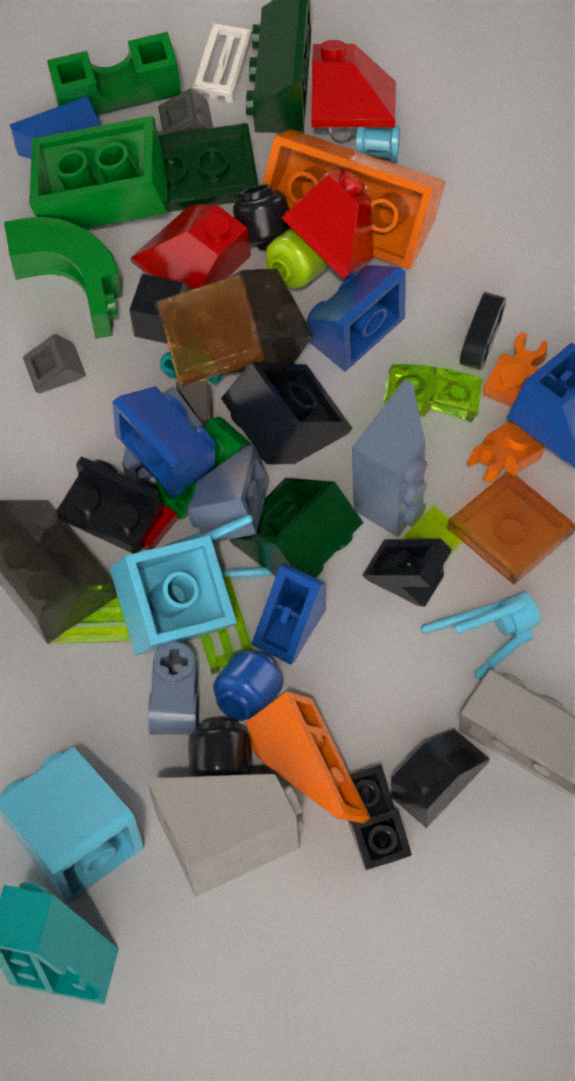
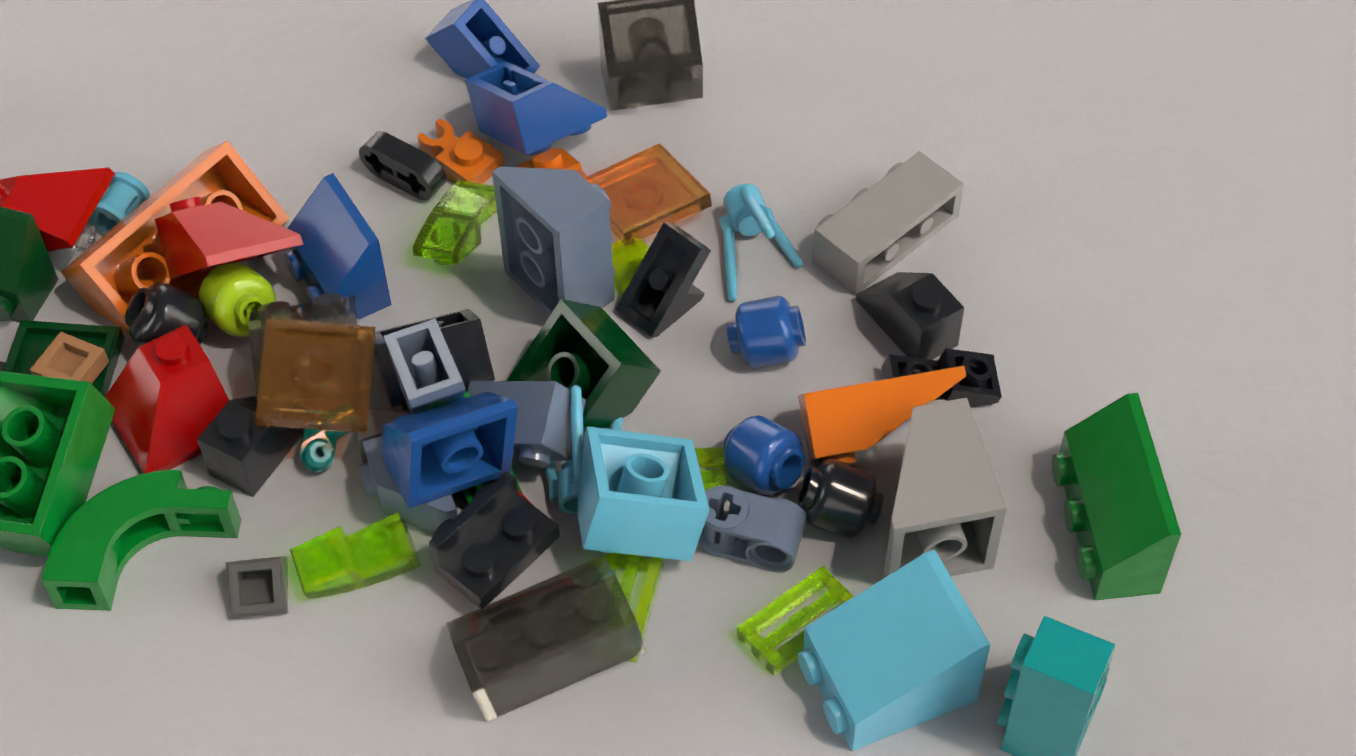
camera: 80 degrees left, 10 degrees down
(86, 419) = (345, 562): none -> clear neon green slope
(135, 774) = (764, 648): none -> clear neon green tile
(200, 168) = (71, 359): none -> medium nougat plate
(221, 402) = (424, 367): none -> sand blue slope
(260, 976) = (1117, 501): none -> green slope
(290, 614) = (685, 396): blue slope -> none
(378, 660) = (767, 332): none -> blue head

